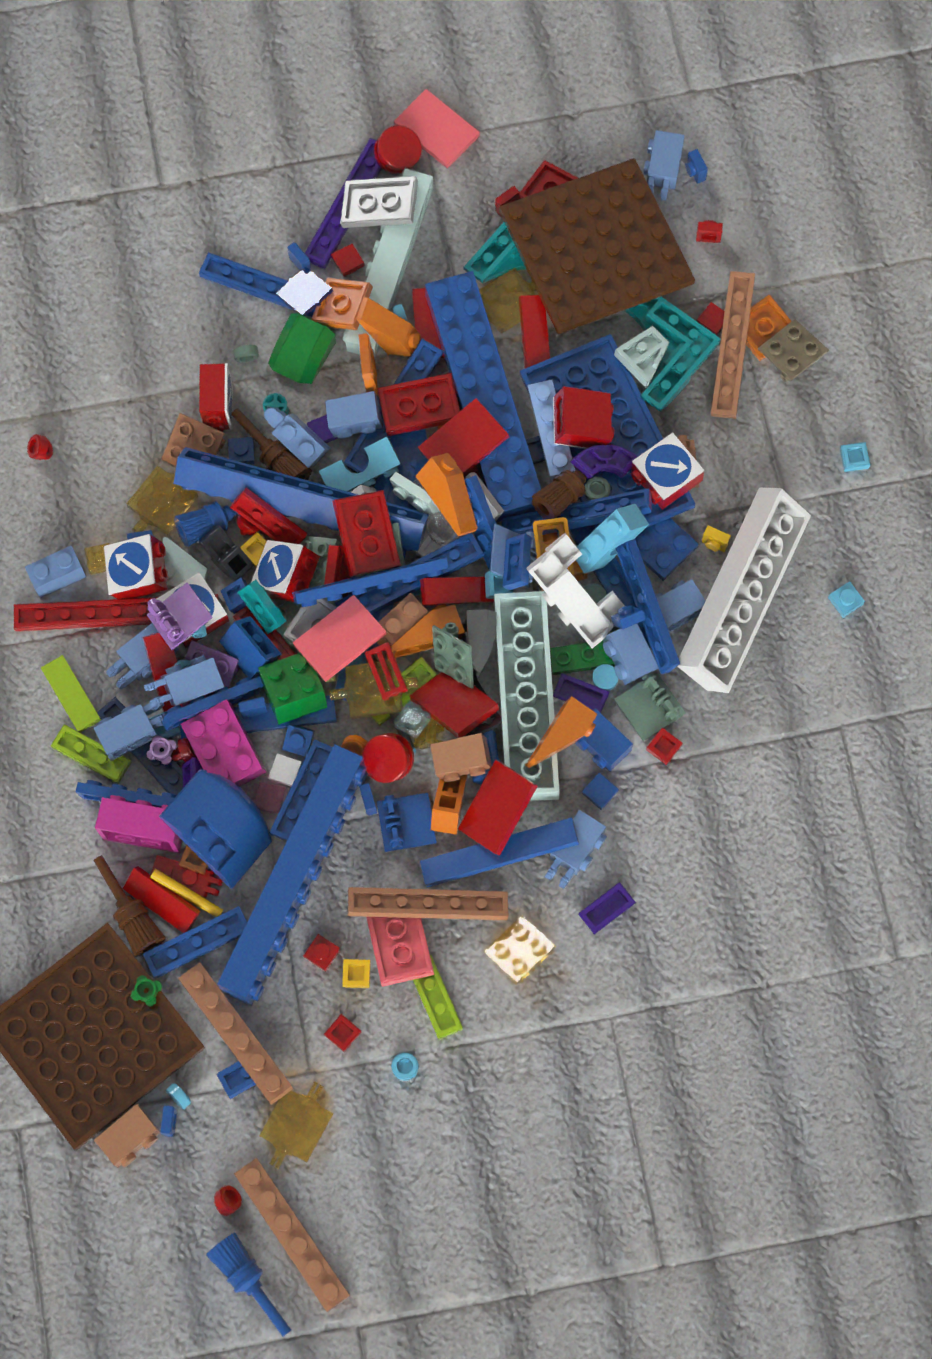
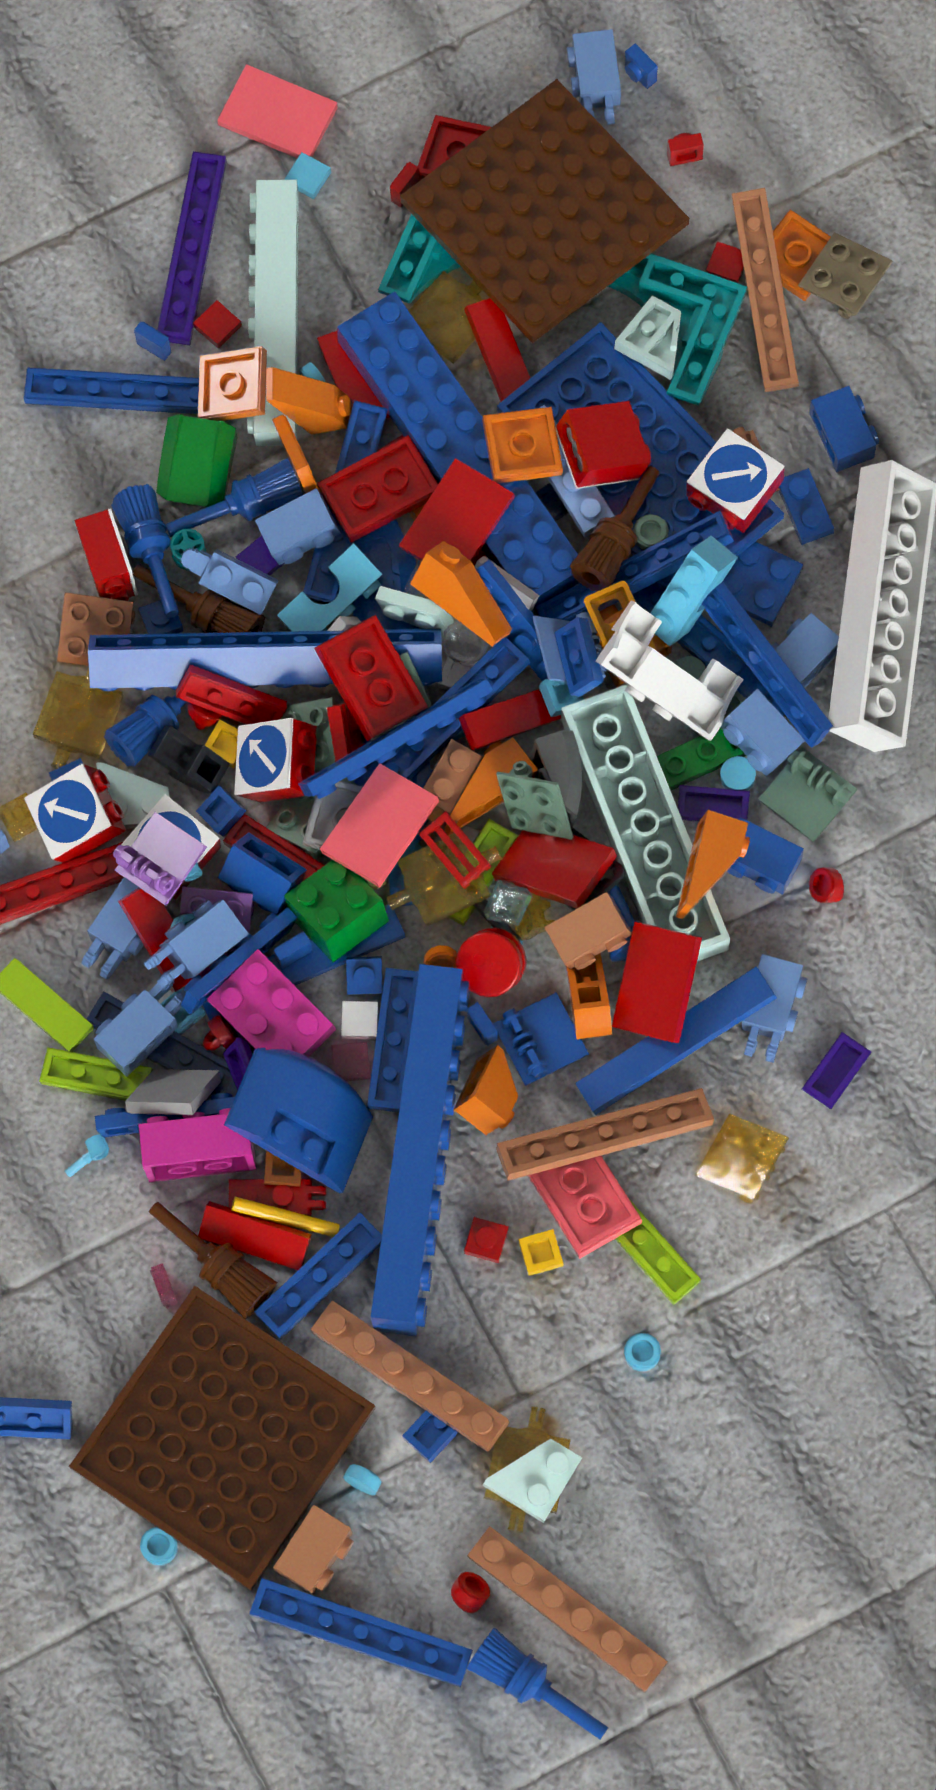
camera: 15 degrees left, 0 degrees up
(21, 1099) = (158, 1546): none -> medium azure tile
(74, 803) = (97, 1150): none -> medium azure hand
(86, 915) = (163, 1285): none -> clear pink tile
(136, 781) = (173, 1092): none -> light grey tile
(141, 1205) = (361, 1632): none -> blue plate
(143, 983) = (268, 1349): green plate -> none
(165, 756) = (185, 1032): lavender plate -> none
(168, 1121) = (361, 1514): blue tile -> none
(246, 353) = (122, 483): sand green tile -> none
(249, 390) = (146, 536): none -> blue piece
(262, 606) = (261, 814): teal plate -> none
(298, 1134) = (535, 1478): none -> light aqua wing
(304, 291) = (176, 383): clear blue piece -> none
(328, 384) = (248, 497): none -> blue piece
(342, 1032) = (547, 1334): red tile -> none
(356, 849) = (488, 1093): none -> orange slope
(379, 202) = (237, 234): tile -> none
(397, 149) = (237, 157): red head -> none
(444, 176) = (309, 175): none -> medium azure tile
(526, 402) = (522, 445): none -> orange tile
(600, 791) = (778, 923): blue tile -> none
(604, 458) = (649, 488): dark purple tile -> none
(627, 617) = (745, 686): blue plate -> none
(642, 774) = (826, 885): none -> red tile
(664, 746) = (843, 840): red plate -> none
(713, 503) = (805, 507): none -> blue plate
(715, 539) = (824, 552): yellow plate -> none
(757, 457) = (843, 428): none -> blue brick

